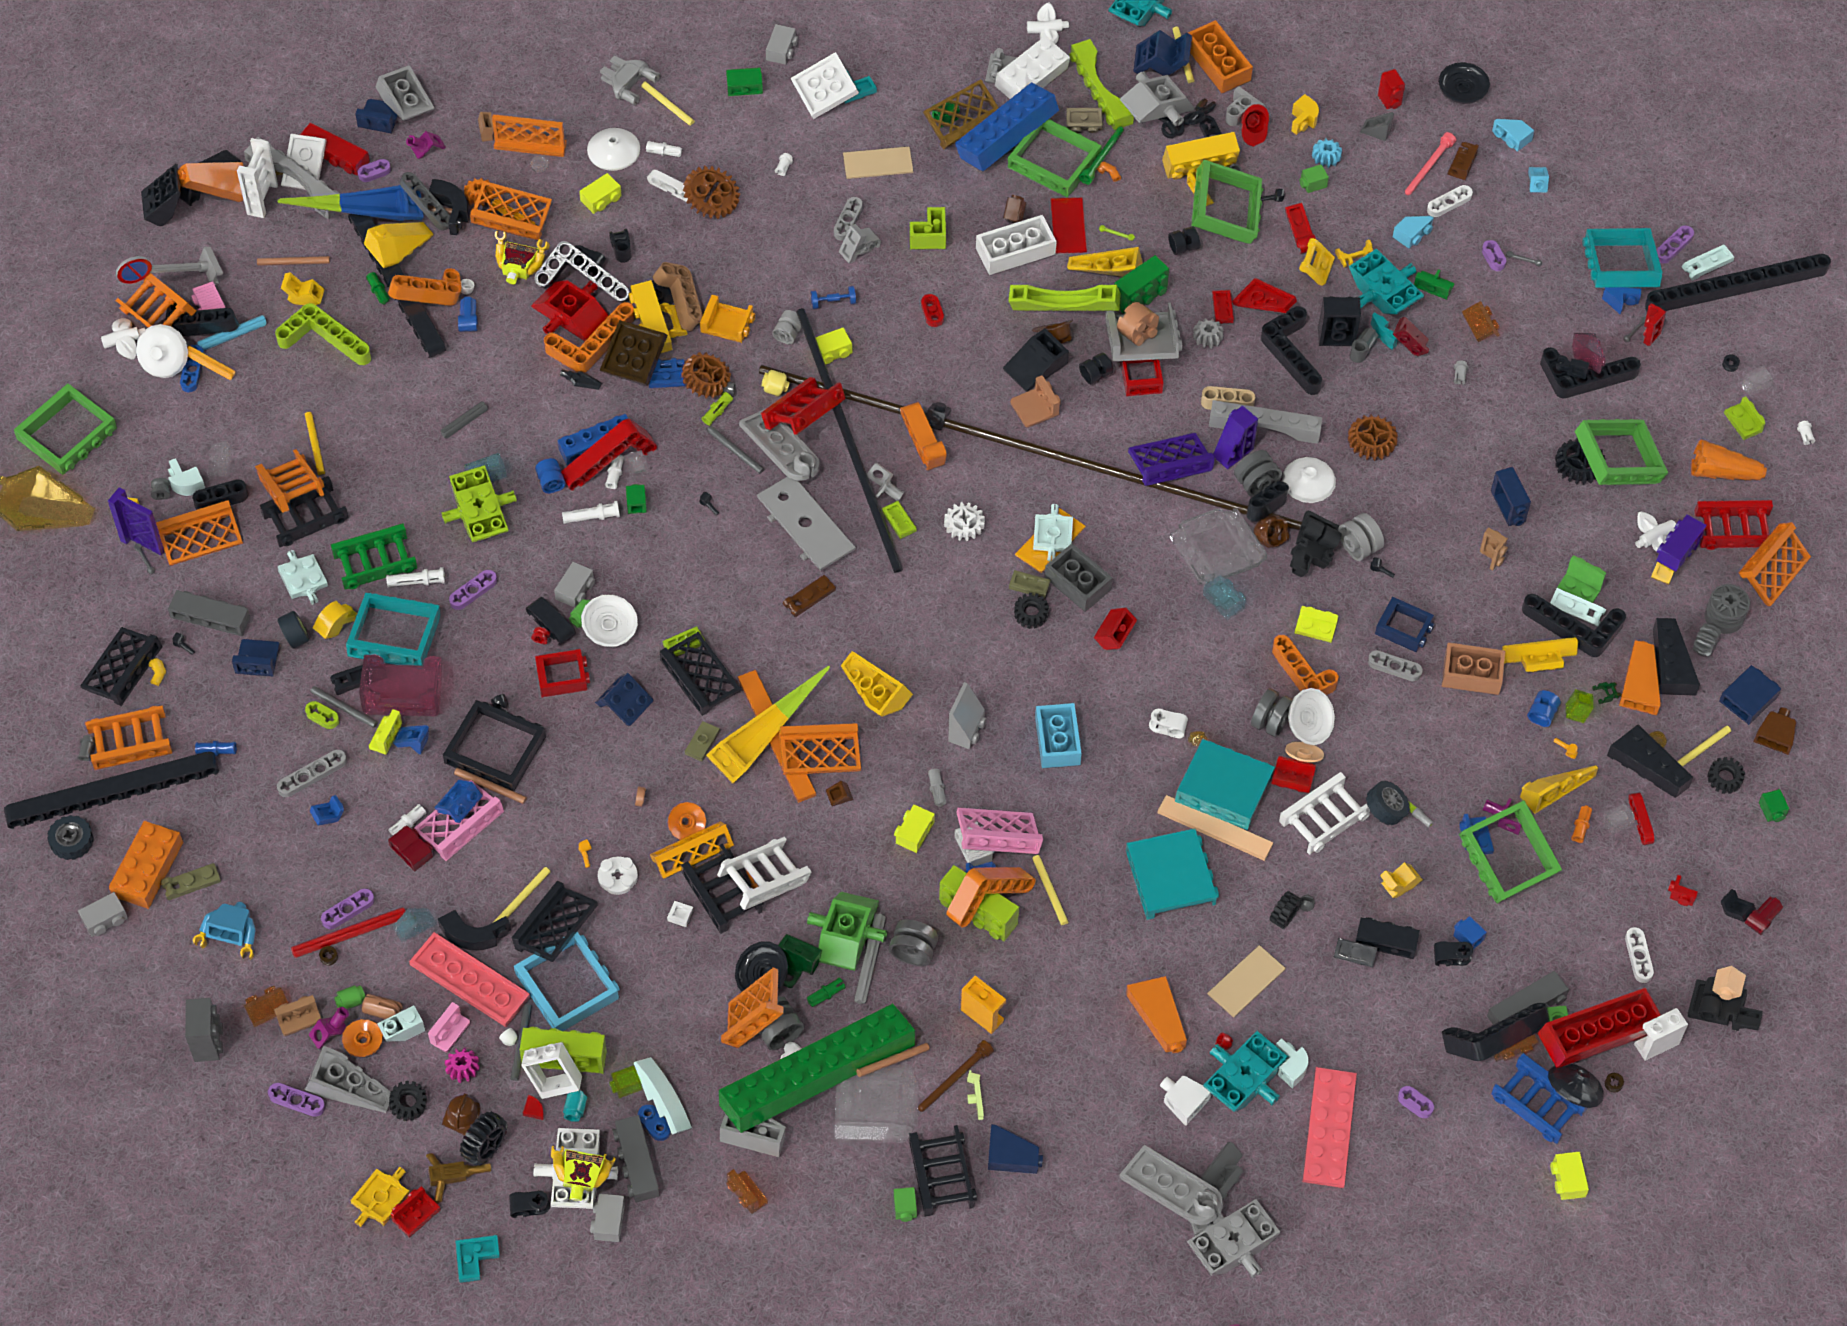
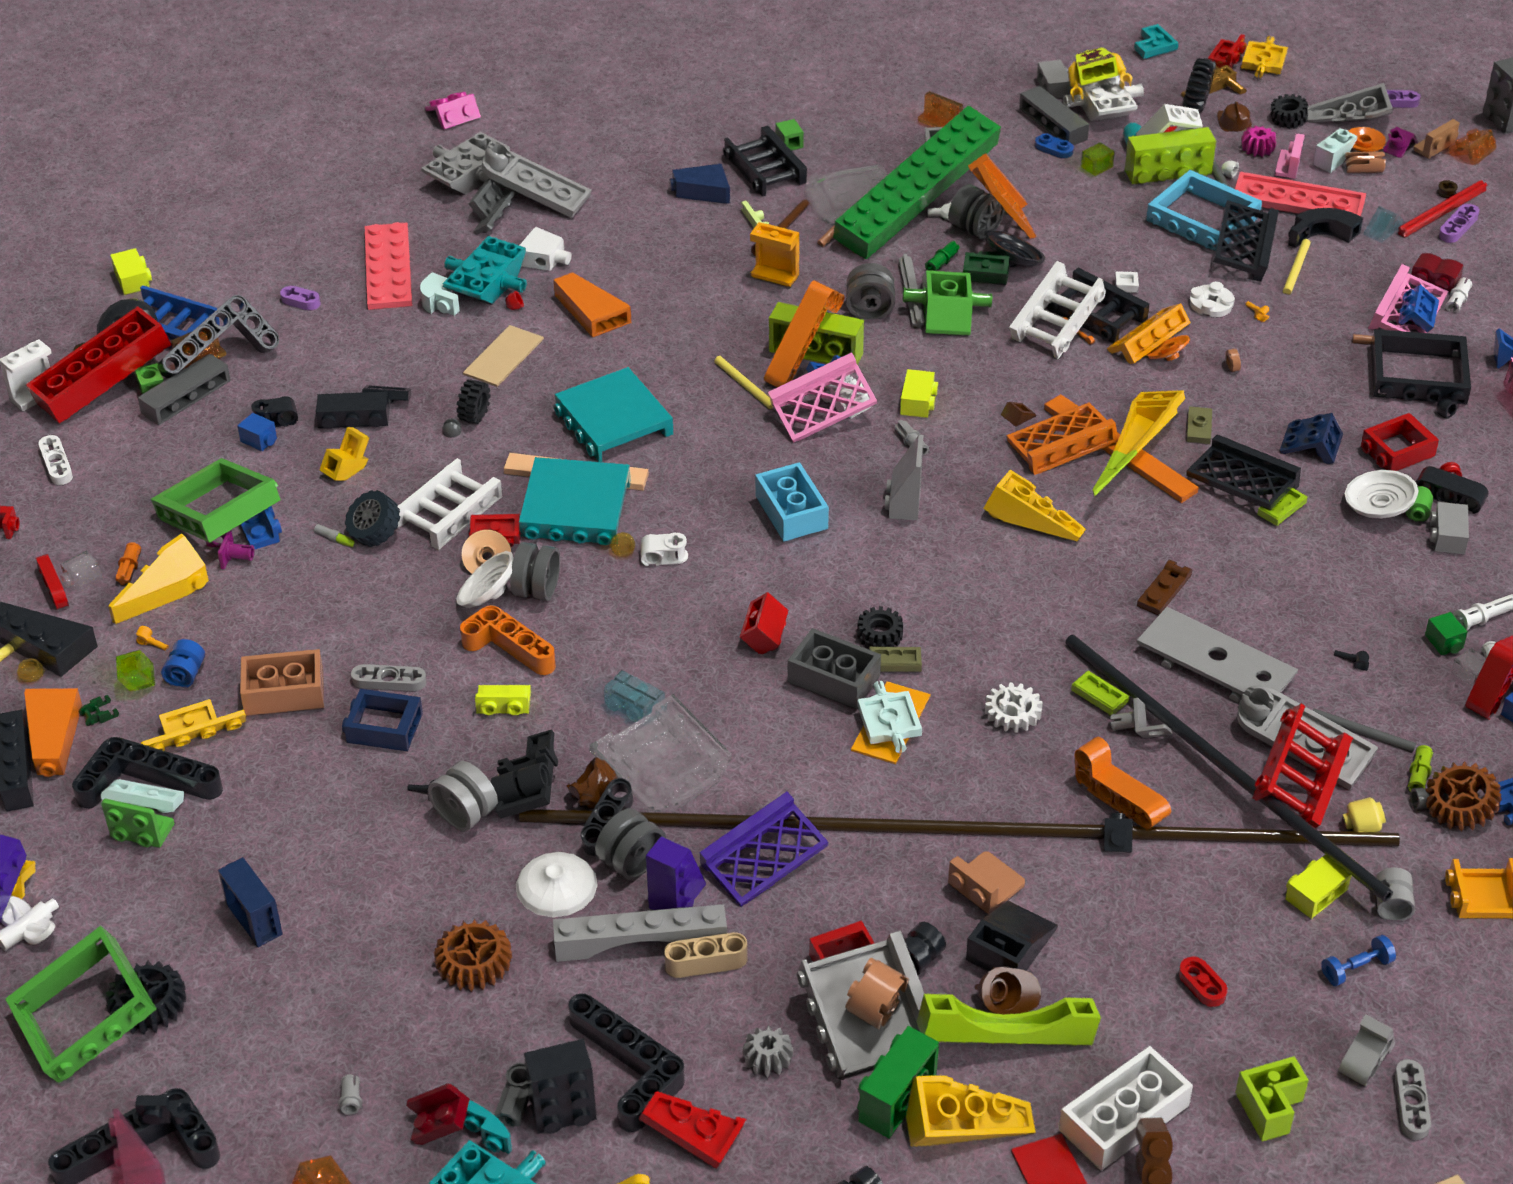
camera: 165 degrees right, 15 degrees down
(350, 997) = (1400, 163): bright green brick -> none
(526, 1203) = (1139, 73): black piece -> none
(662, 1093) = (1057, 153): light aqua slope -> none
(1222, 306) = (758, 1105): red plate -> none
(1494, 547) = (268, 827): medium nougat bracket -> none

